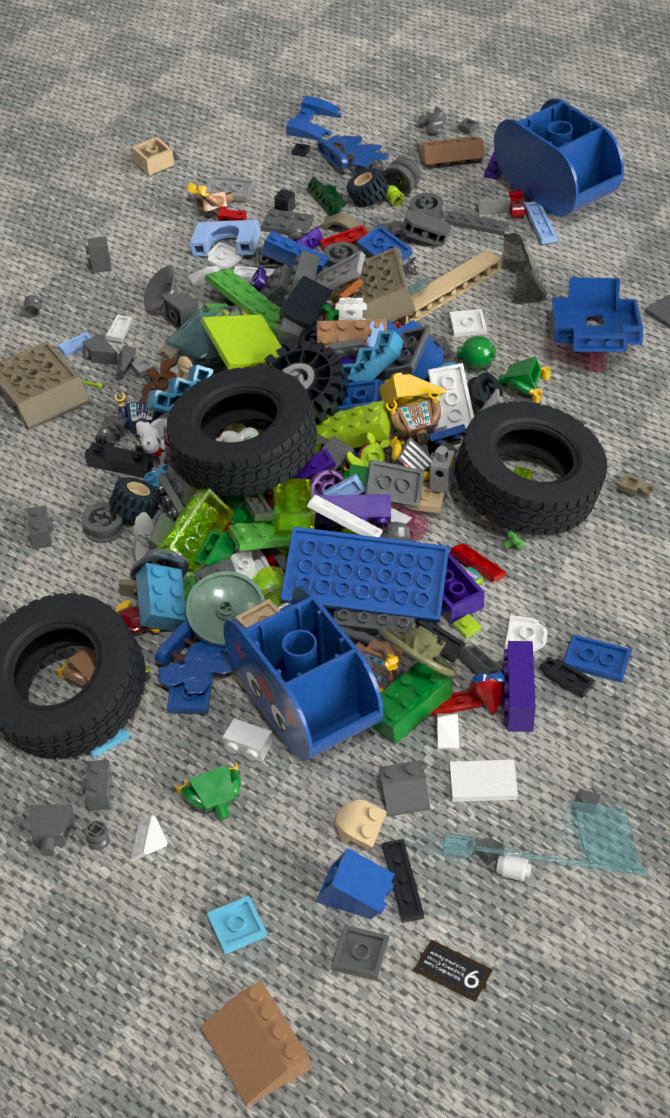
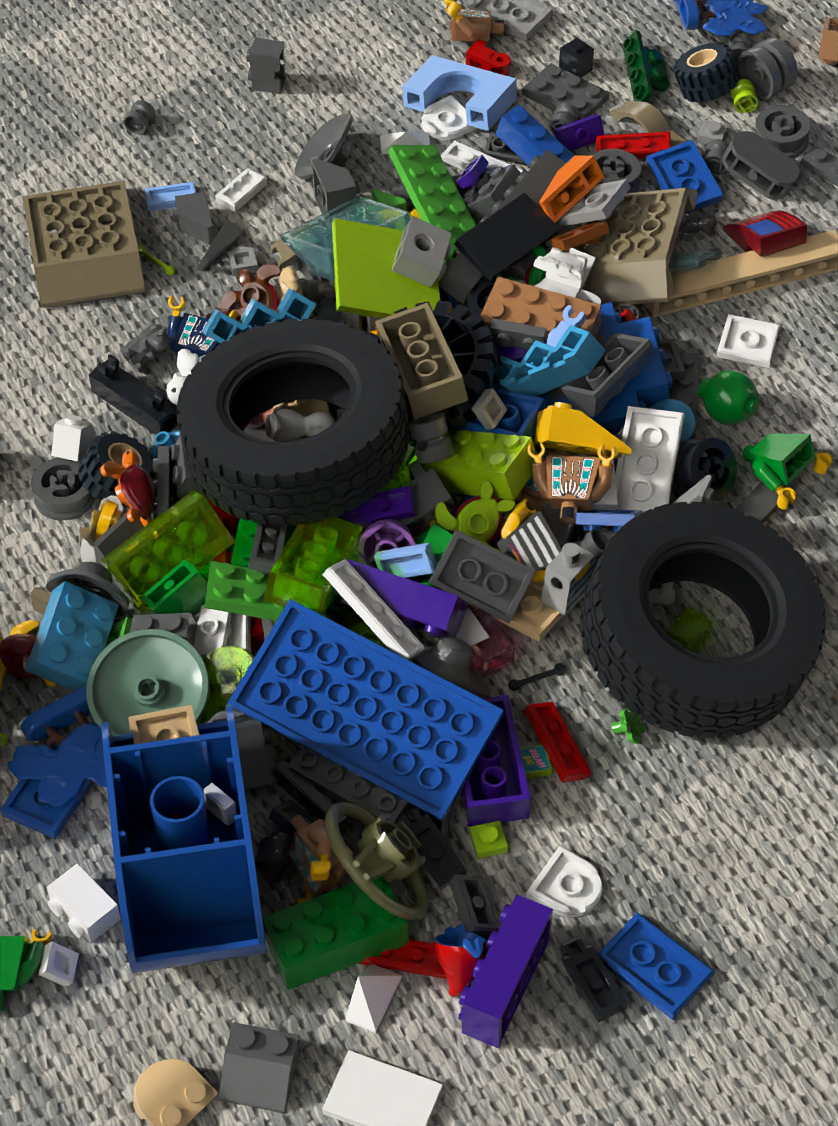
camera: 20 degrees right, 5 degrees up
(97, 490) = (72, 438): none -> white slope
(146, 526) = (108, 517): none -> yellow plate
(158, 500) = (134, 486): none -> animal
(251, 777) = (58, 964): none -> white plate
(262, 322) = (422, 252): none -> light grey brick
(314, 376) = (424, 360): none -> dark tan brick
(322, 645) = (220, 804): none -> white tile
(326, 418) = (431, 439): none -> dark grey wheel
(327, 264) = (570, 185): none -> orange slope
(351, 393) = (489, 409): none -> light grey plate
(449, 261) = (768, 232): none -> dark red slope
(456, 525) = (559, 669): none -> black hinge

